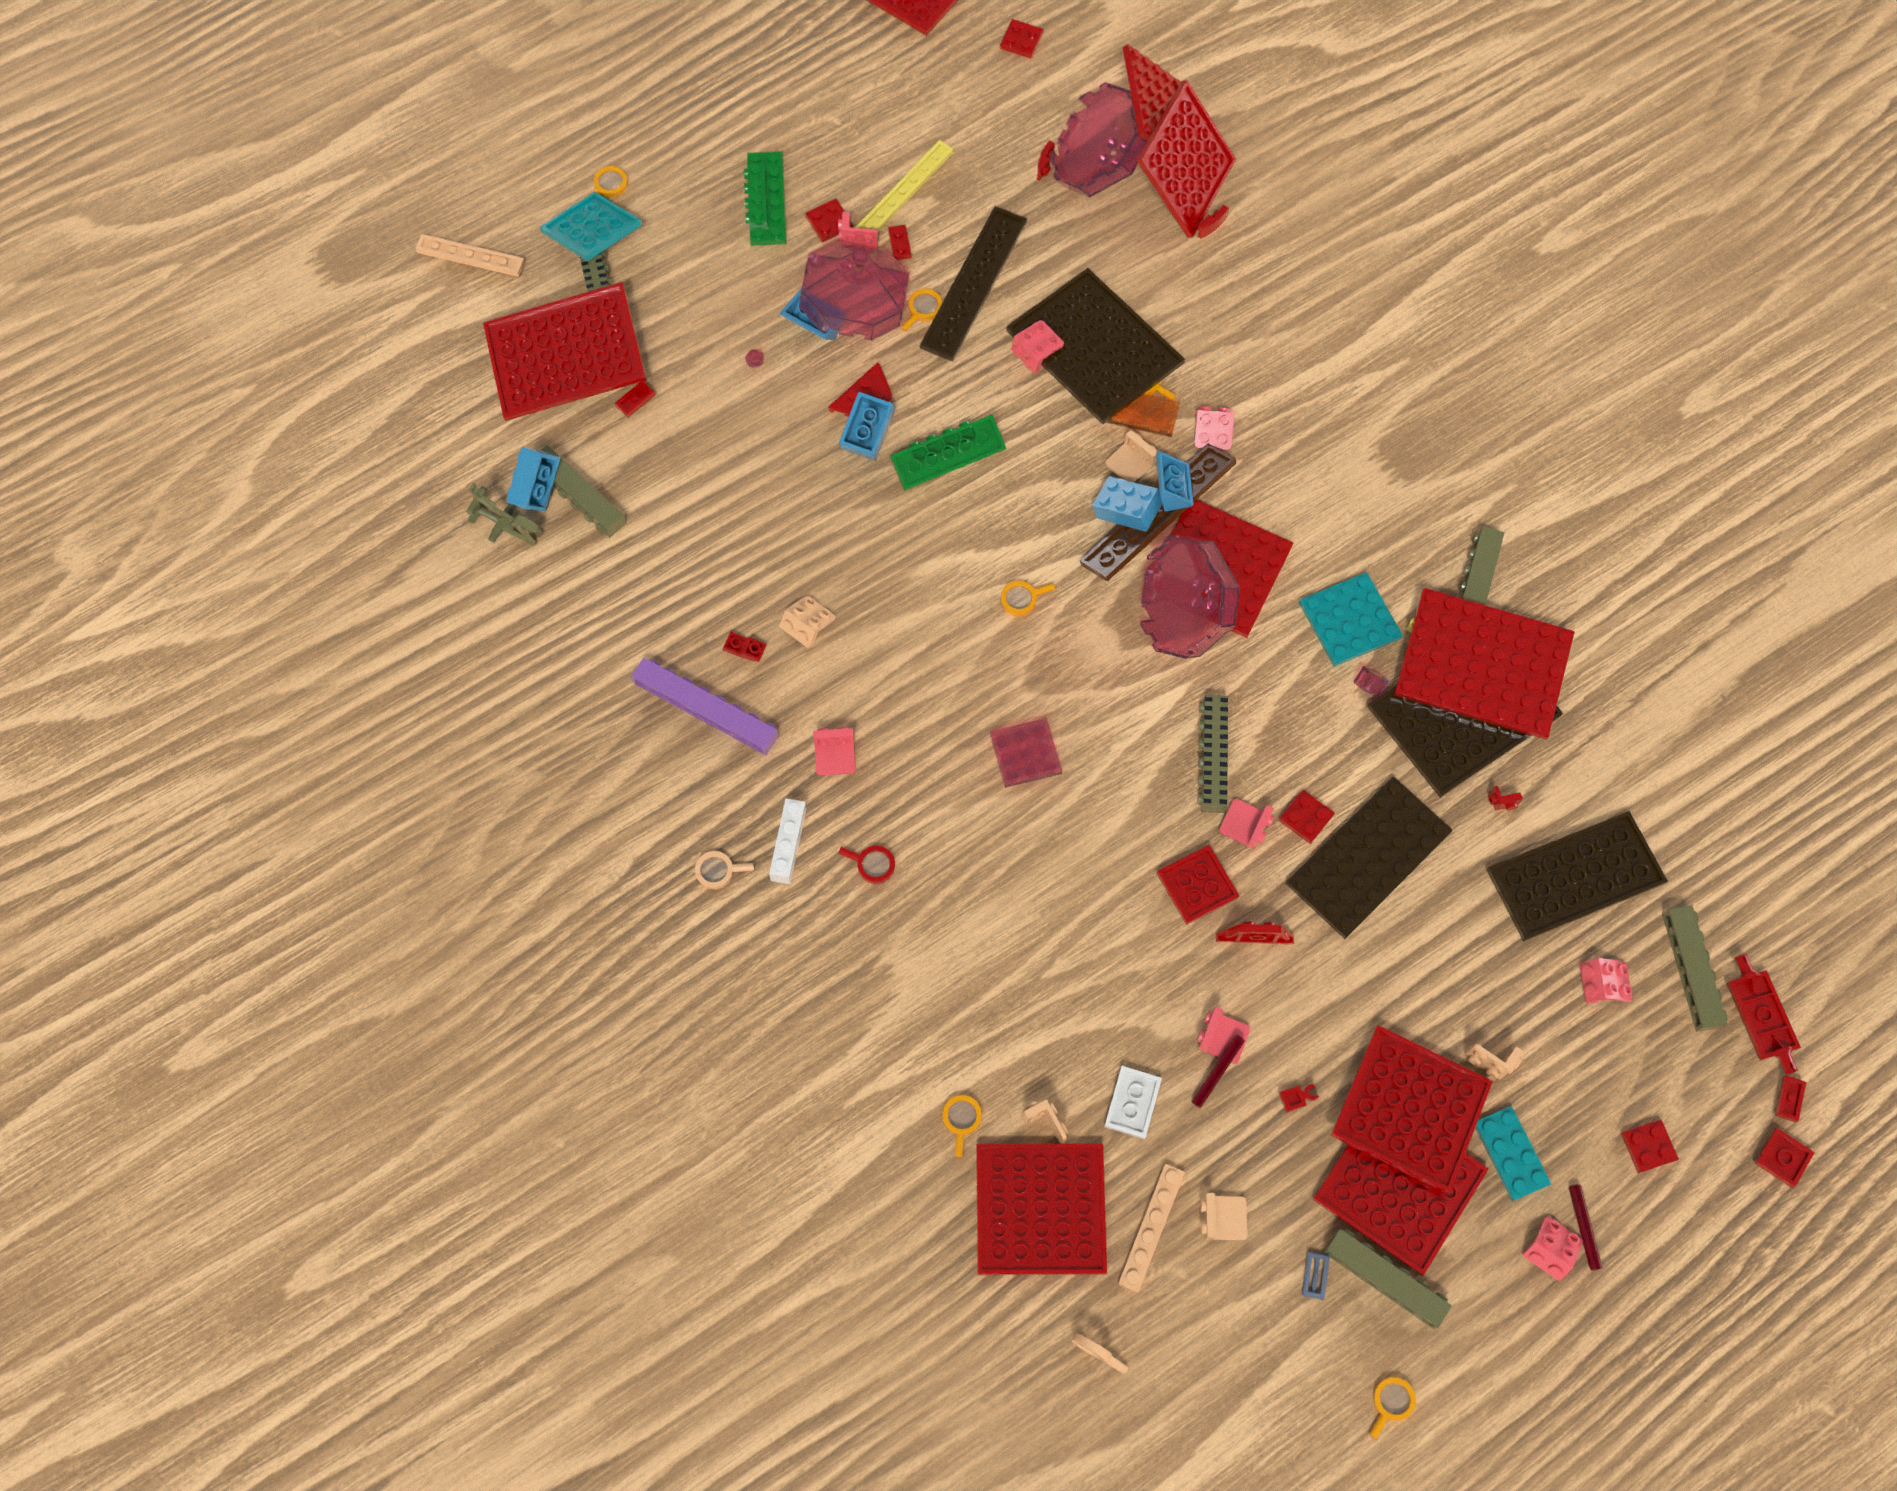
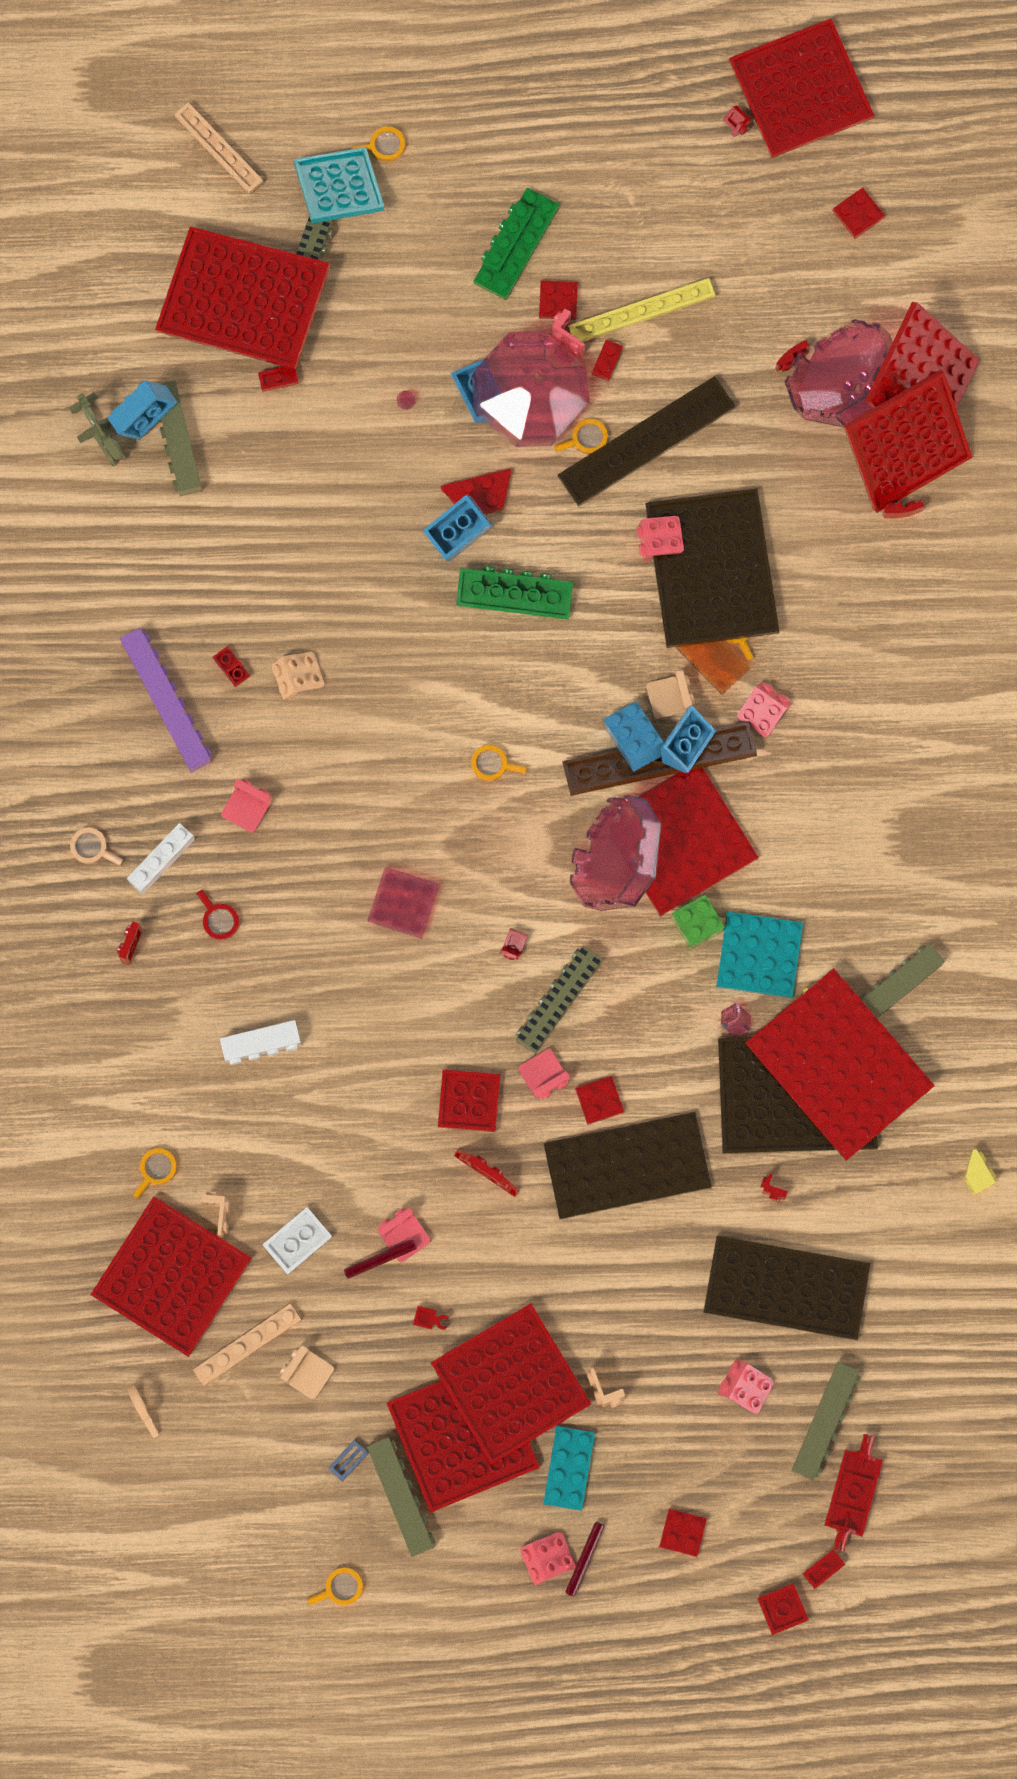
camera: 35 degrees right, 10 degrees up
(806, 923) = (132, 938): none -> red plate
(882, 22) = (737, 121): none -> red bracket
(982, 945) = (260, 1041): none -> white brick
(1143, 730) = (514, 944): none -> bracket
(1283, 621) = (697, 922): none -> bright green brick
(1655, 684) = (977, 1174): none -> light yellow slope

